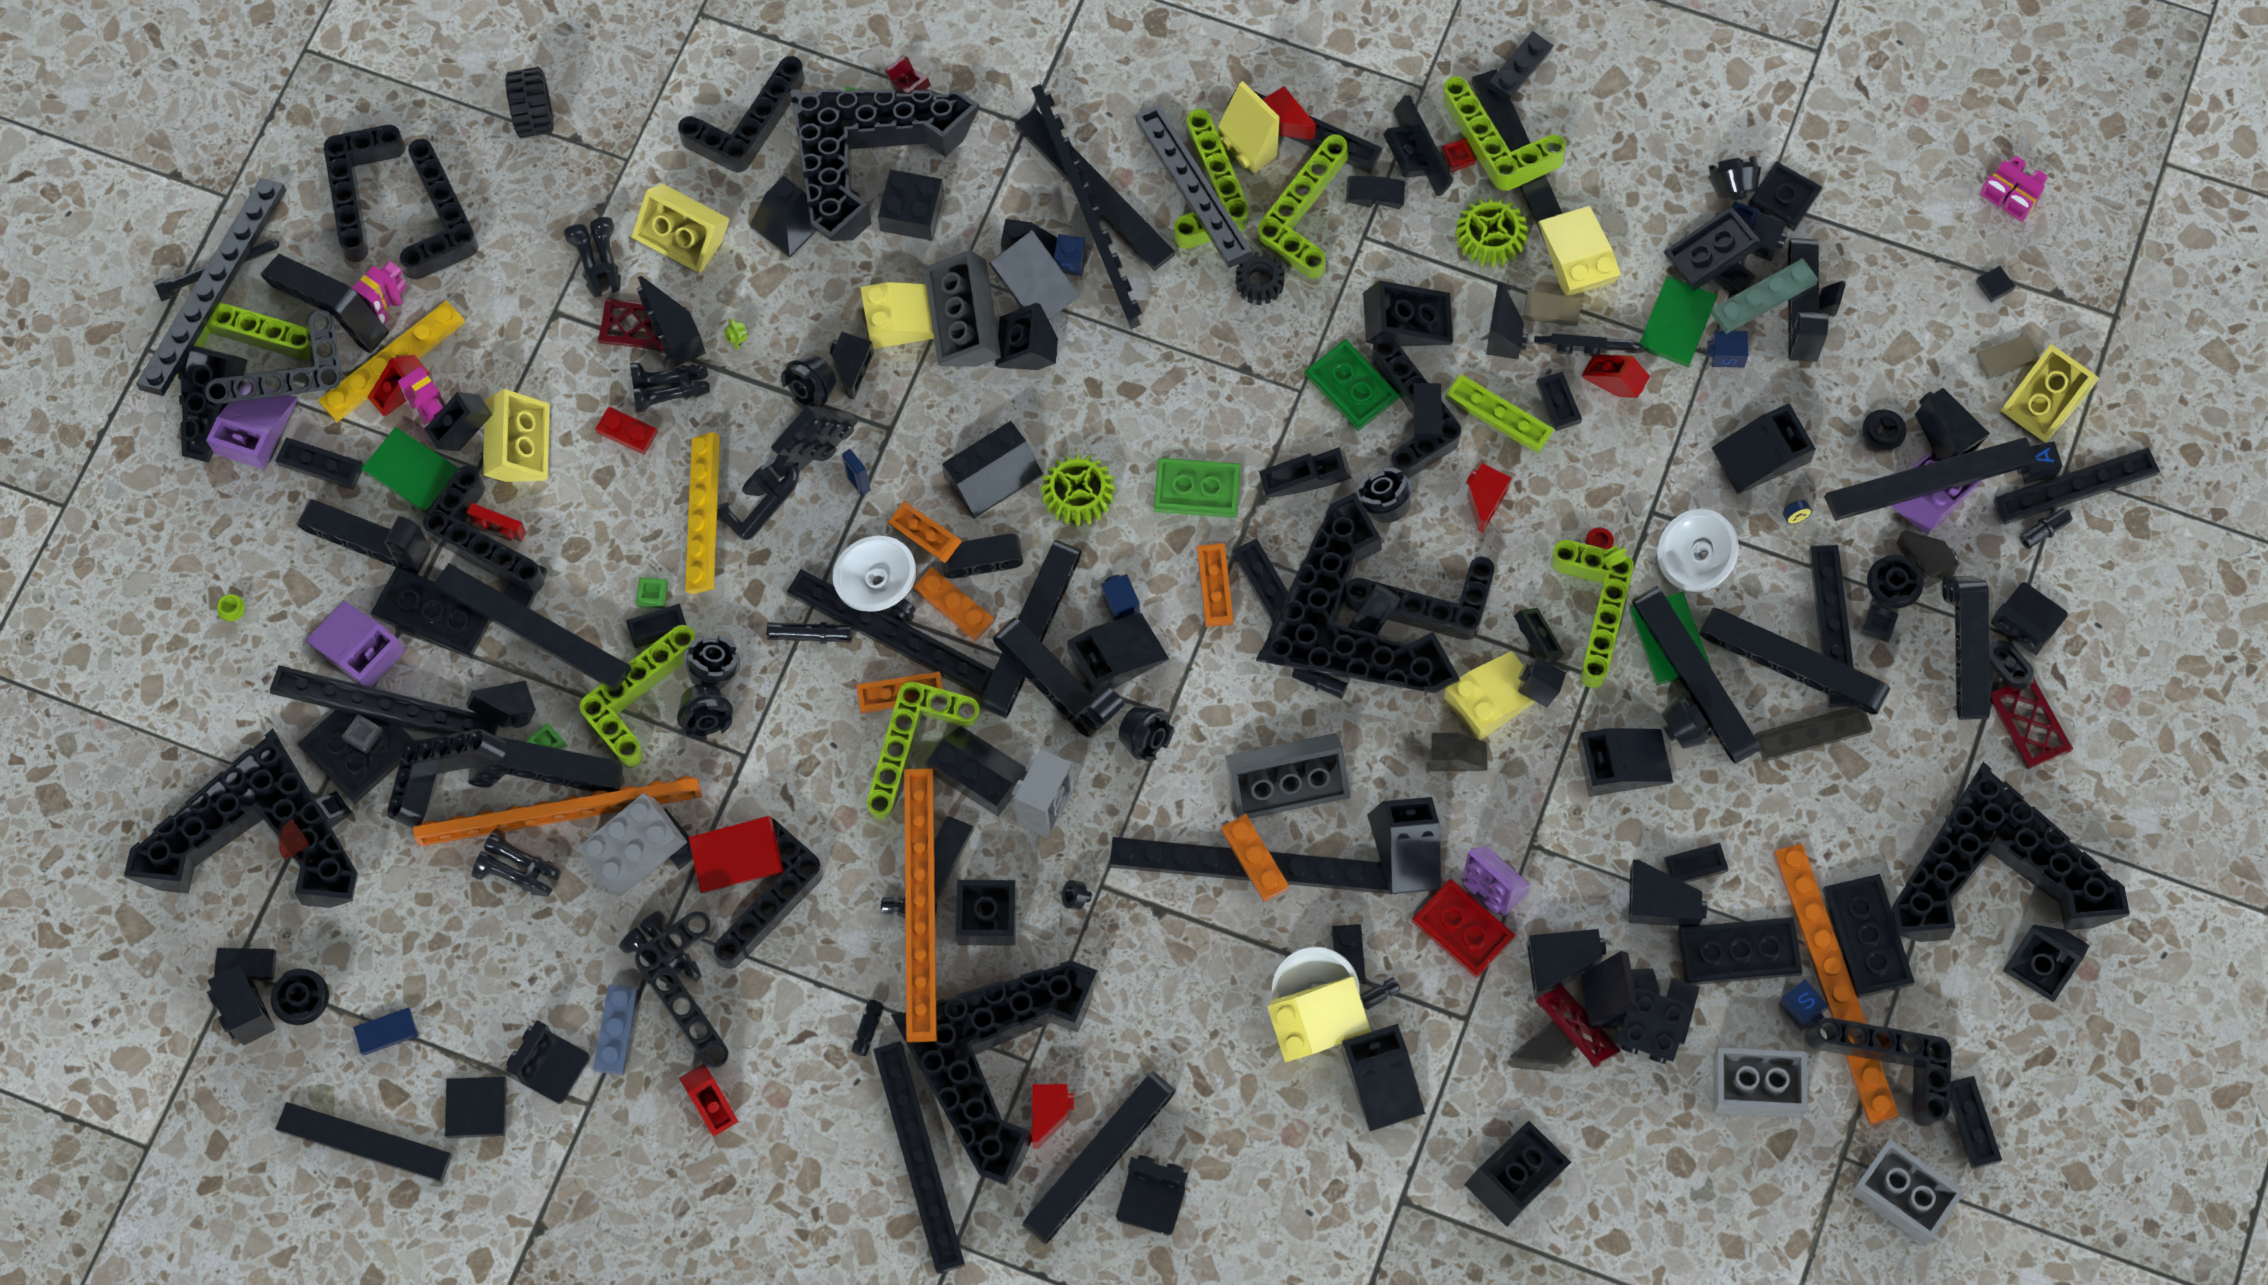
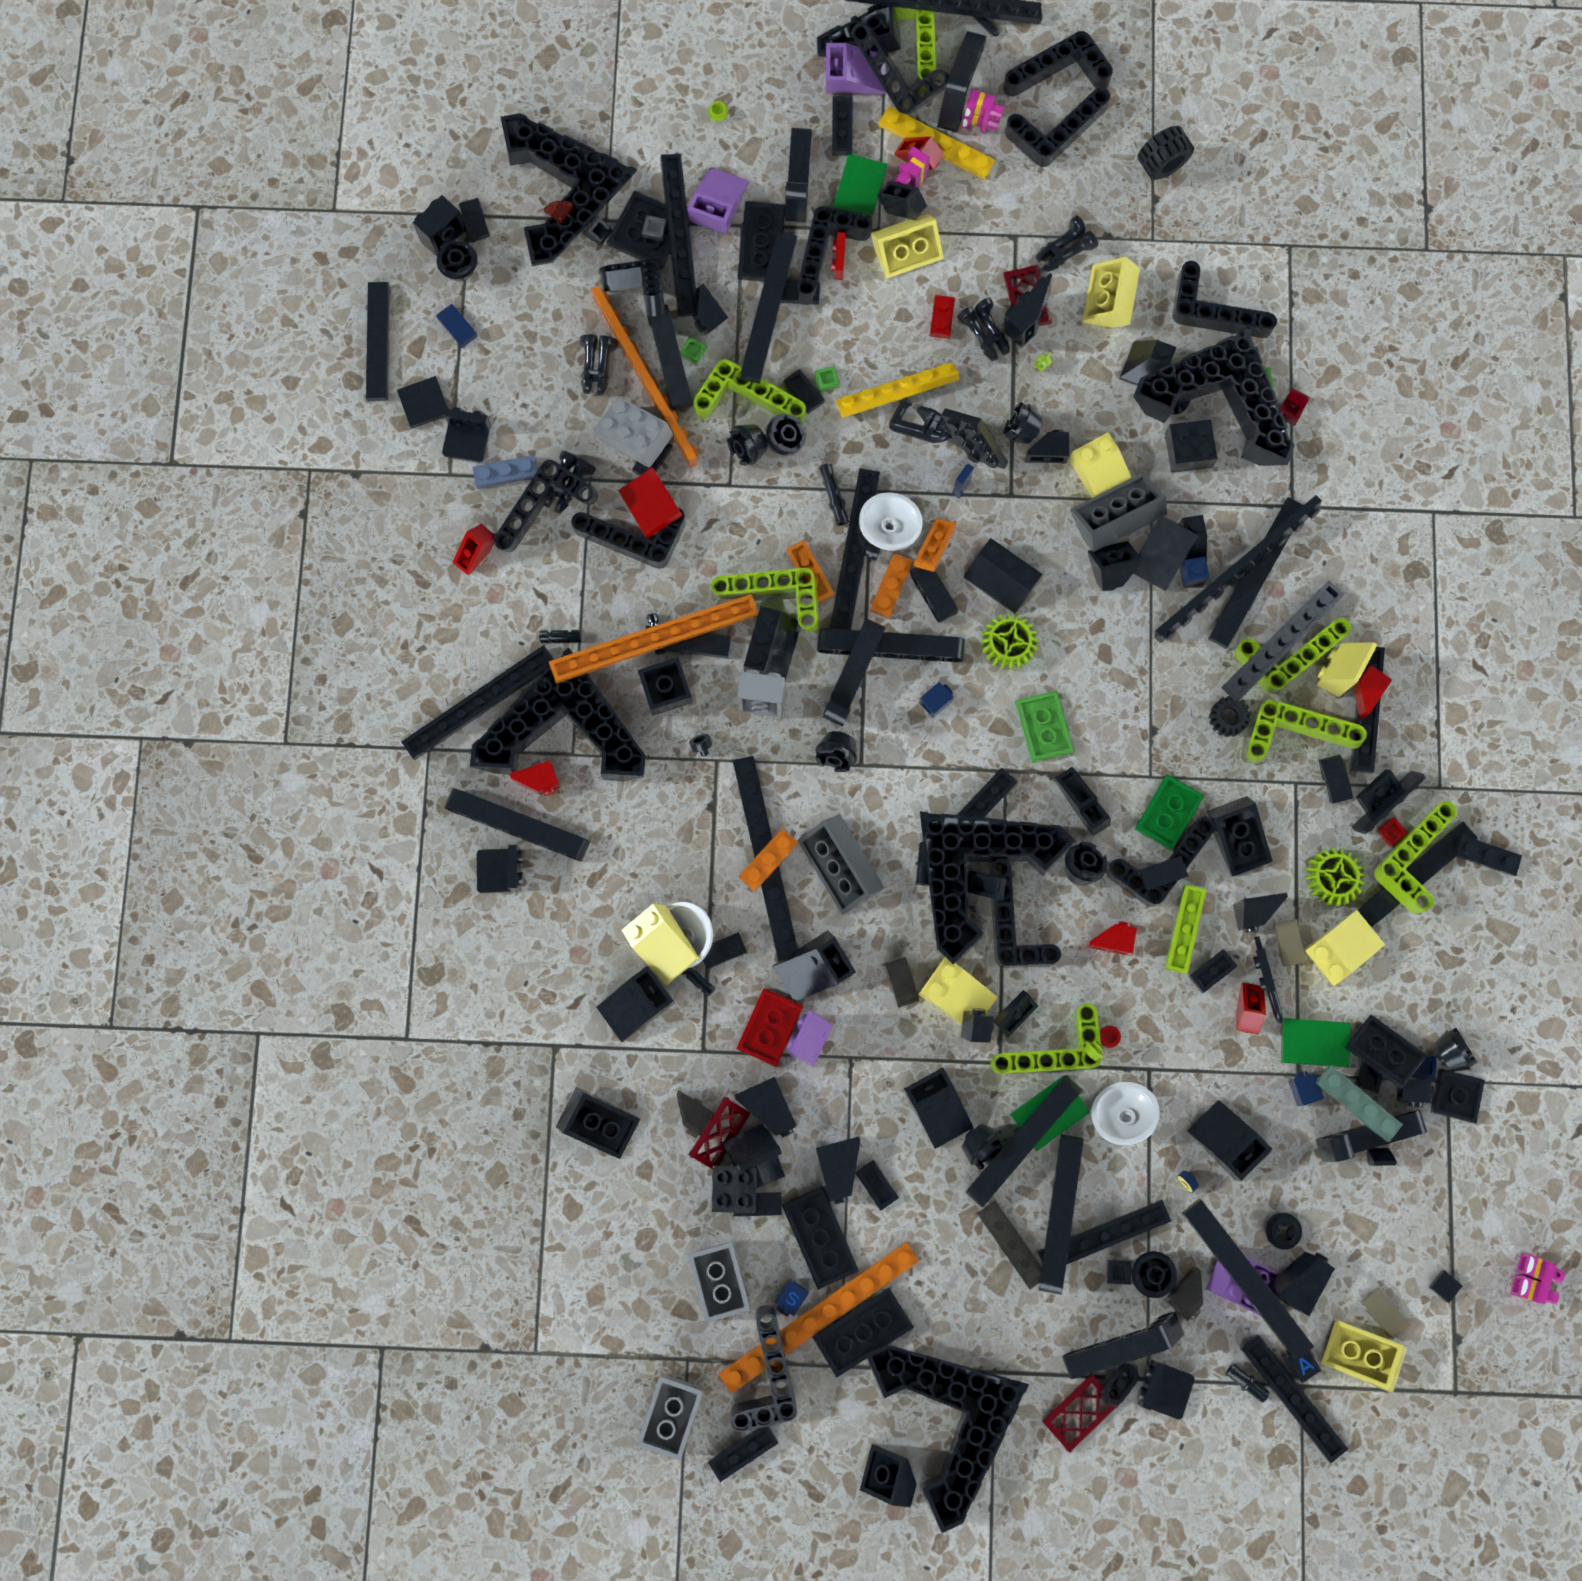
camera: 70 degrees right, 10 degrees up
(1116, 652) = (892, 711): black slope -> none
(1215, 585) = (971, 764): orange plate -> none

